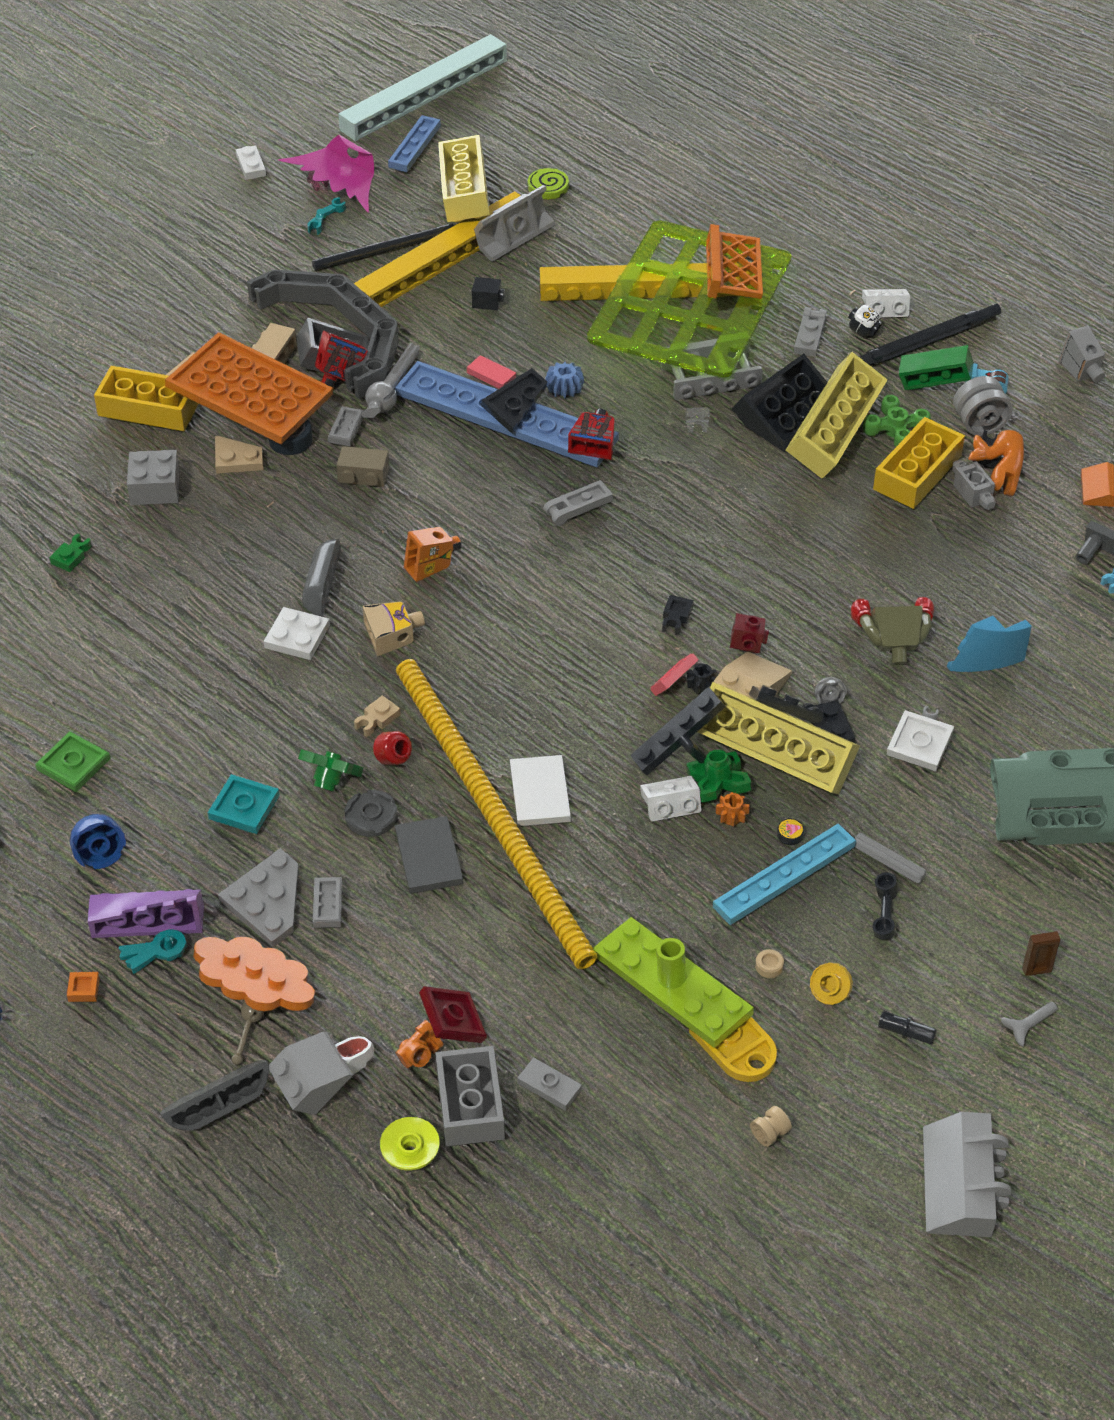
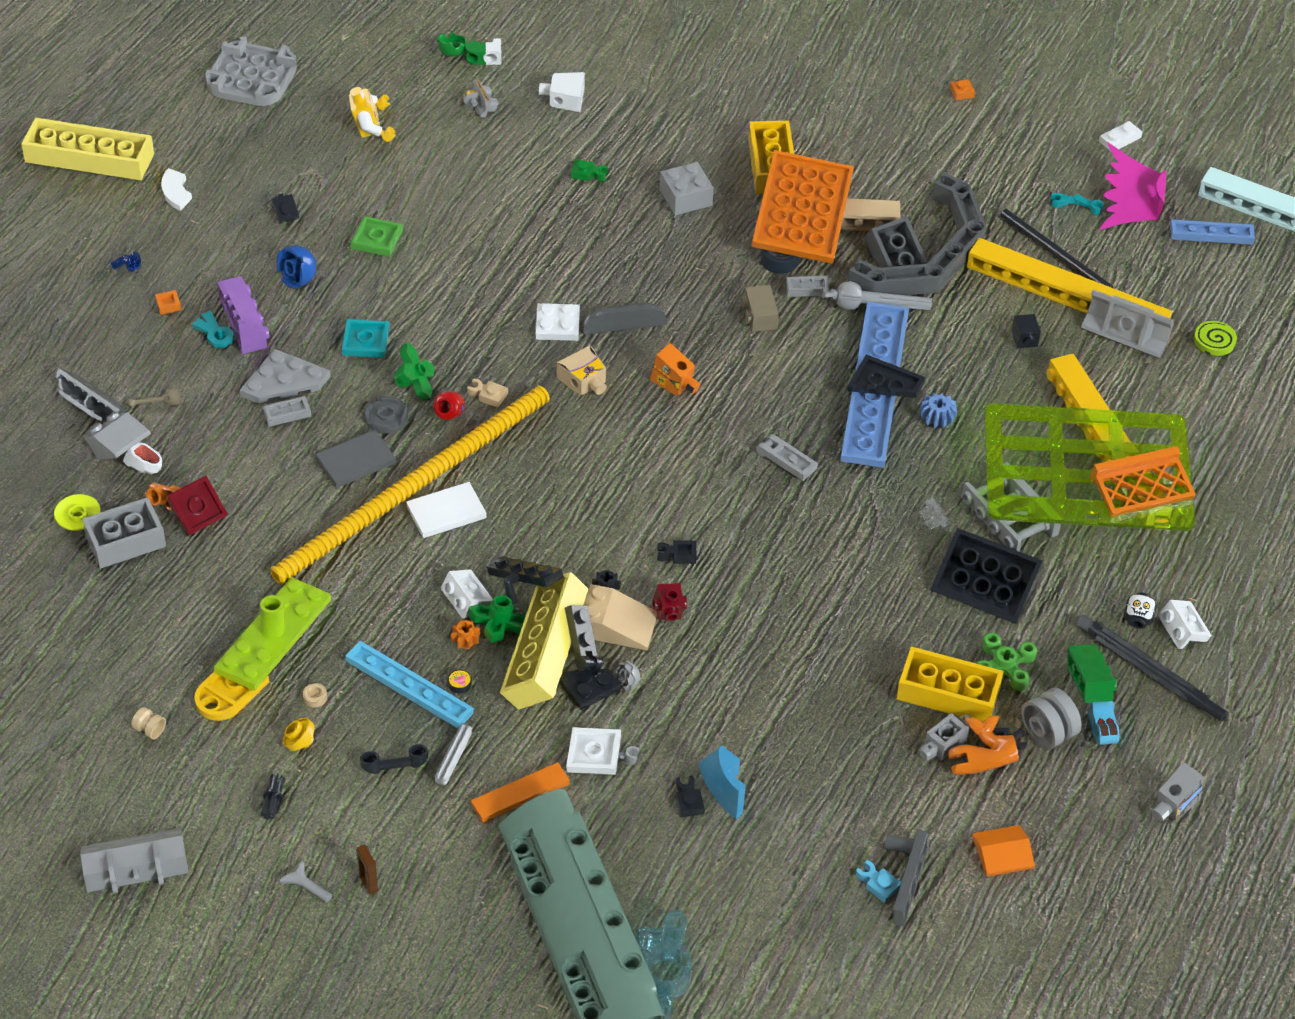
camera: 70 degrees right, 0 degrees up
(119, 244) = (962, 89): none -> orange plate
(236, 456) = (740, 231): tan wing -> none
(253, 973) = (202, 385): orange plate -> none
(335, 356) = (875, 249): torso -> none
(463, 179) = (1162, 269): light yellow brick -> none
(490, 372) = (927, 361): coral tile -> none
(549, 1084) = (156, 582): light grey plate -> none
(592, 435) = (864, 440): red torso -> none
(674, 674) = (603, 563): coral tile -> none
(810, 332) = (1108, 575): light grey plate -> none
(836, 415) = (980, 607): light yellow brick -> none
(895, 627) = (718, 707): olive torso -> none
(953, 815) = (519, 792): none -> orange tile
(995, 686) = (689, 799): none -> black plate

